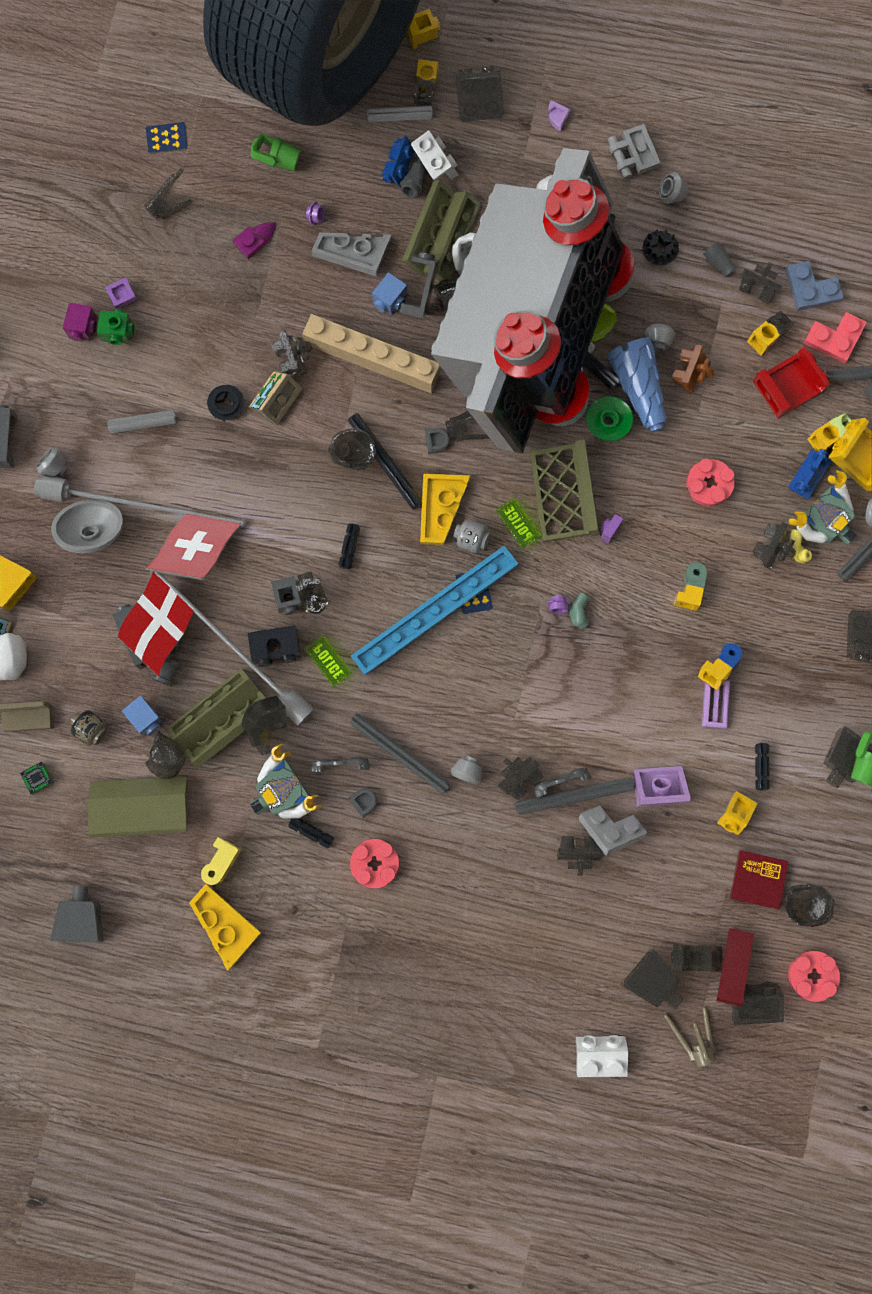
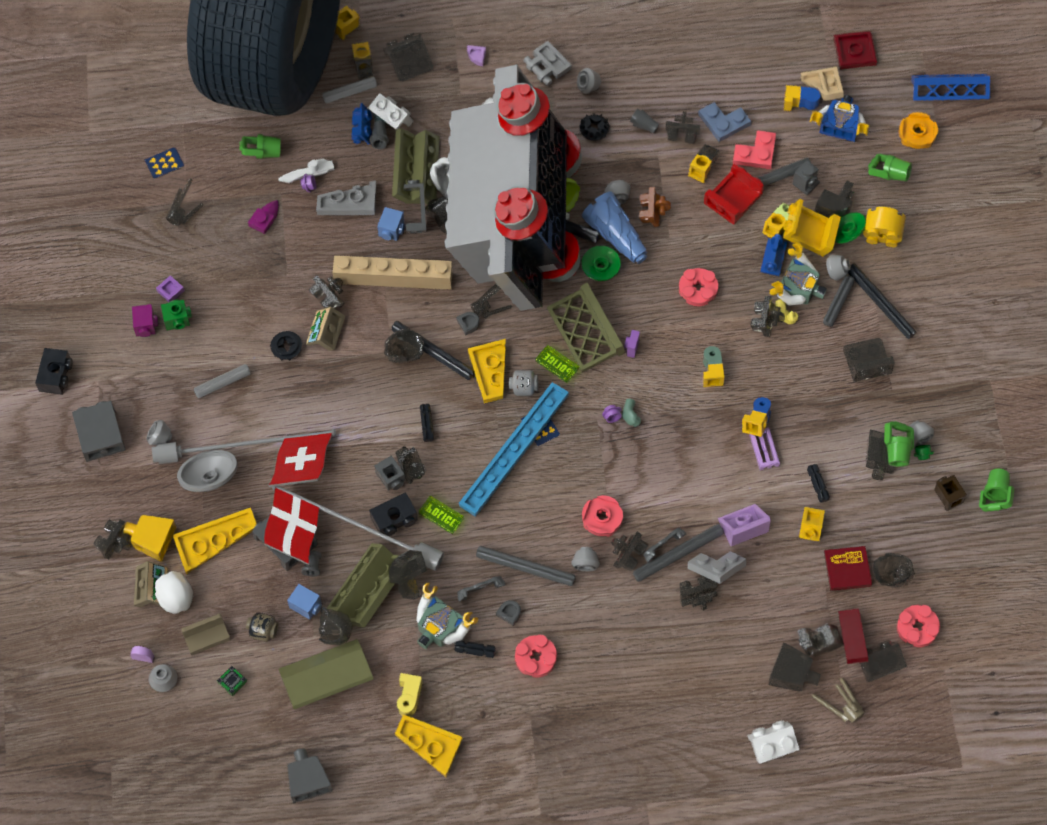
camera: 20 degrees left, 15 degrees down
(61, 606) = (211, 538): none -> yellow wing
(329, 198) = (315, 167): none -> white piece
(503, 710) = (602, 527): none -> coral plate

